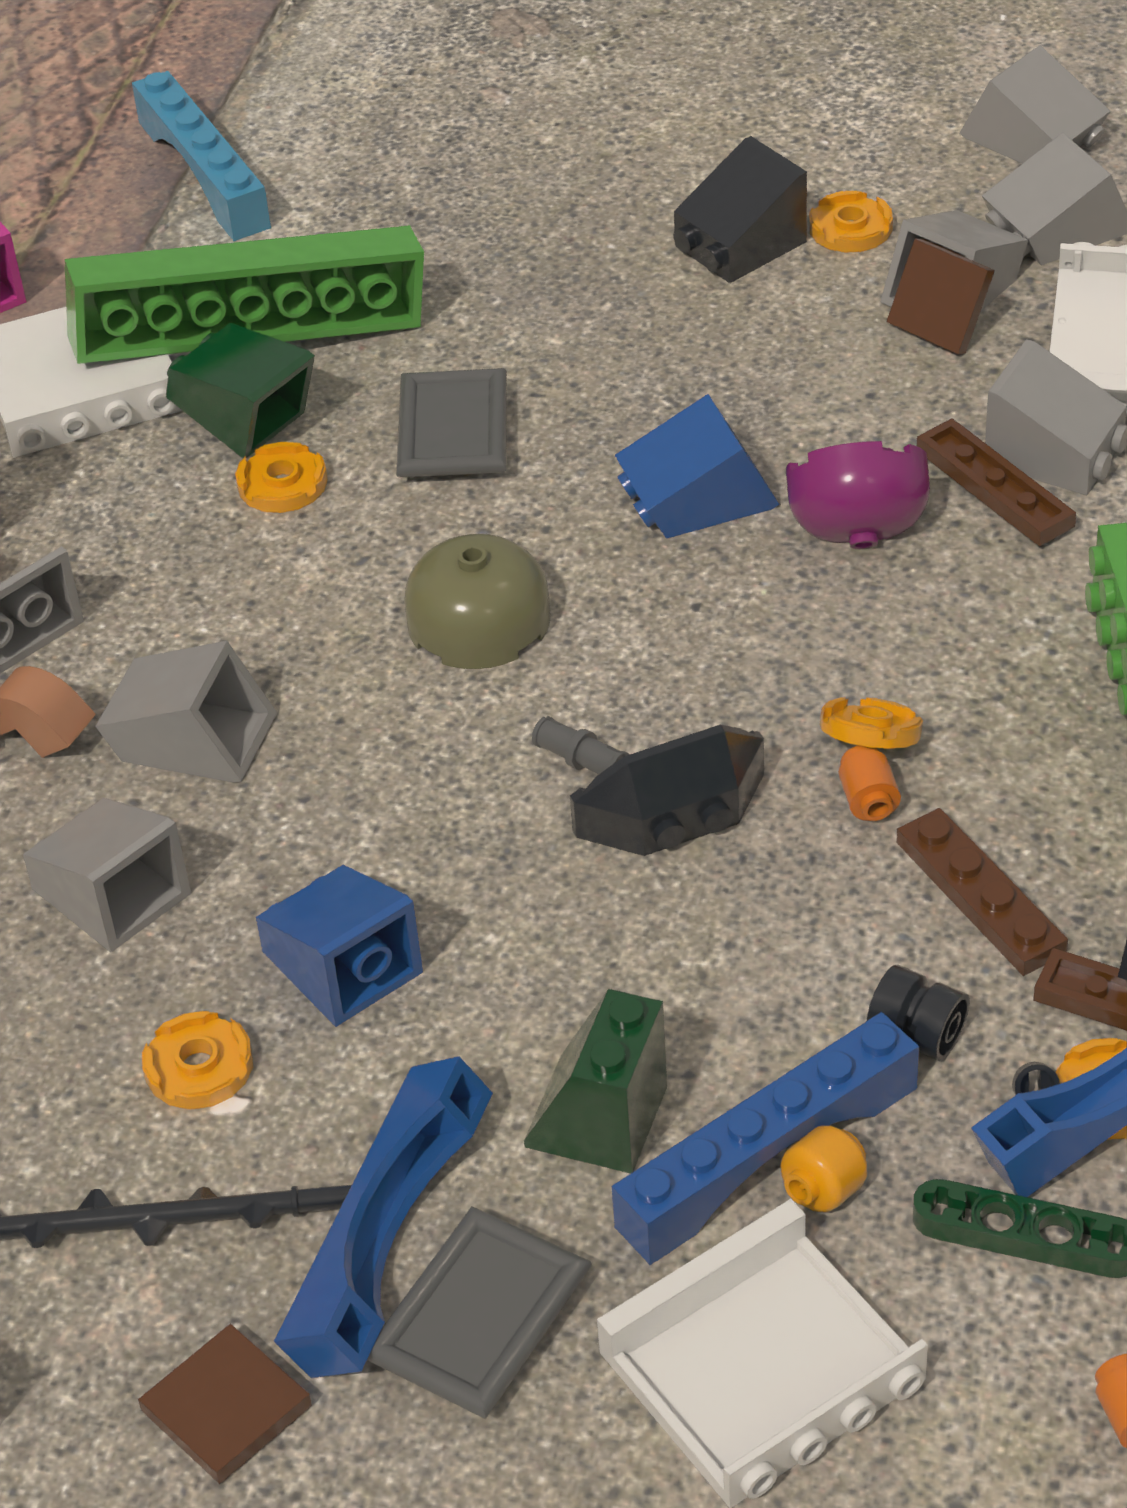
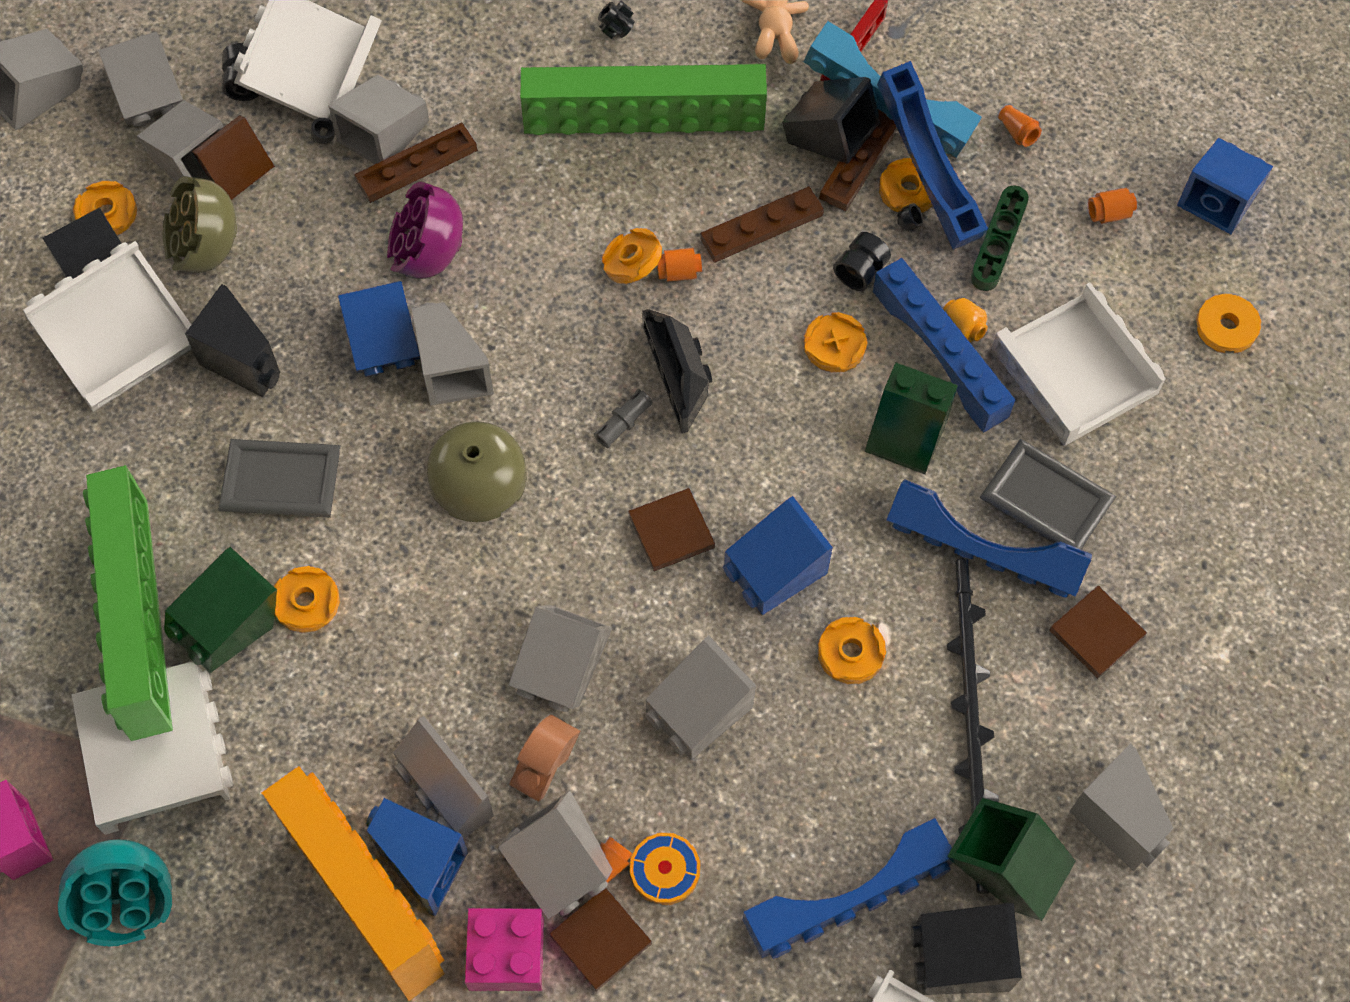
camera: 90 degrees left, 20 degrees up
(399, 826) = (671, 529): none -> reddish brown tile
(643, 339) = (232, 344): none -> black slope
(650, 533) = (449, 356): none -> light grey slope
(654, 237) = (110, 325): none -> white panel
(763, 1004) = (835, 342): none -> light orange tile
(824, 284) = (207, 225): none -> olive cylinder

